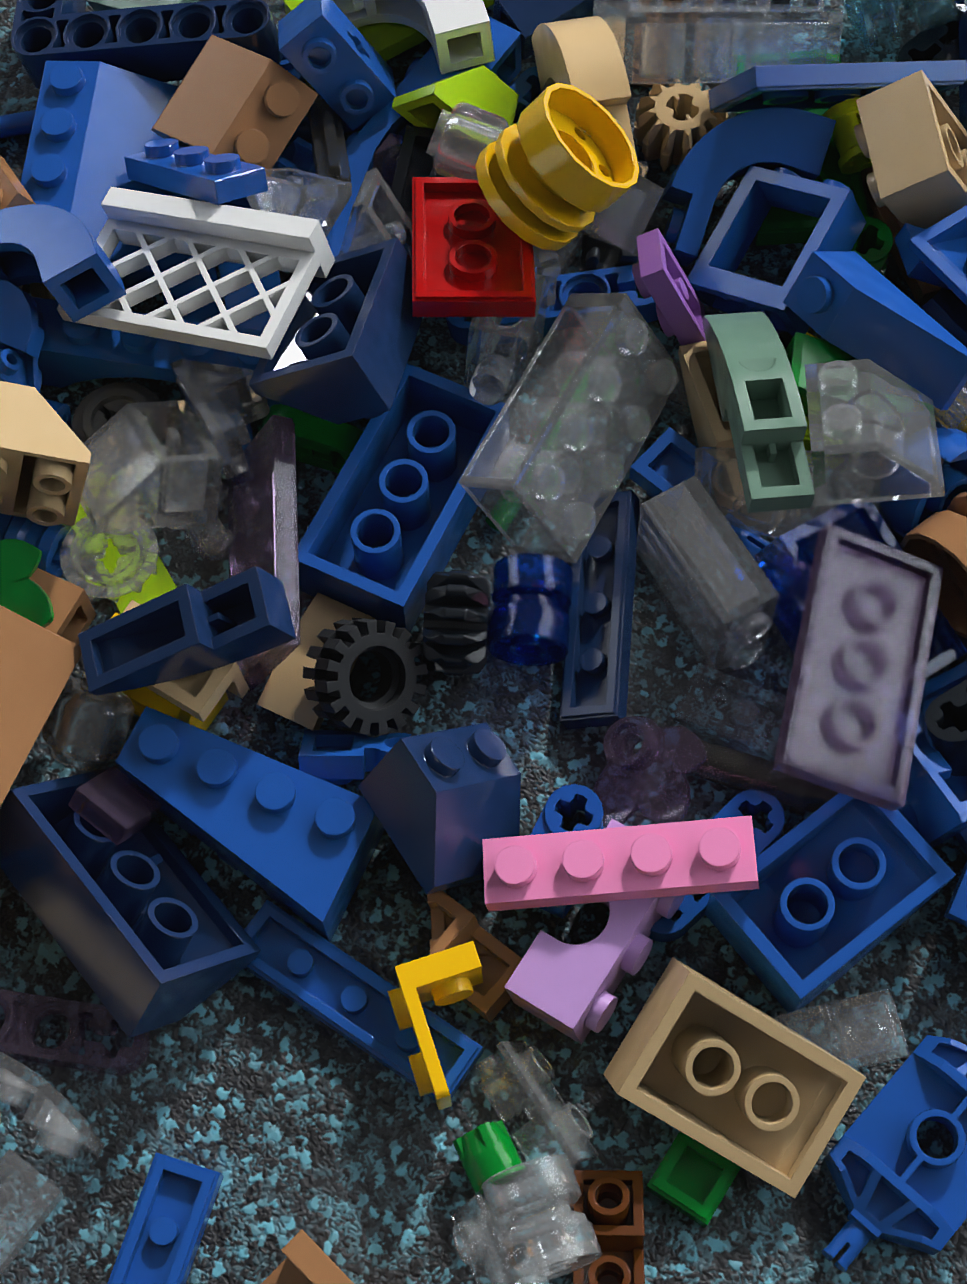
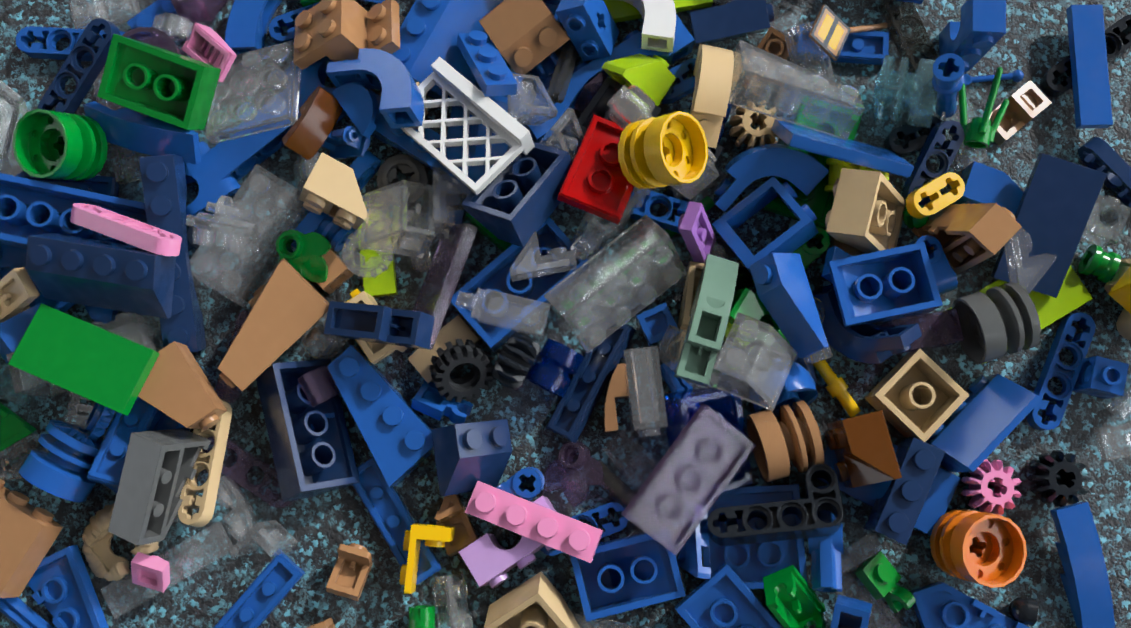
camera: 25 degrees right, 15 degrees up
(105, 1118) = (269, 536): none -> clear panel
(311, 1121) = (350, 571): none -> medium nougat bracket
(402, 532) = (506, 310): none -> clear hinge
(425, 433) = (532, 264): none -> clear slope
(655, 611) = (616, 390): none -> medium nougat slope

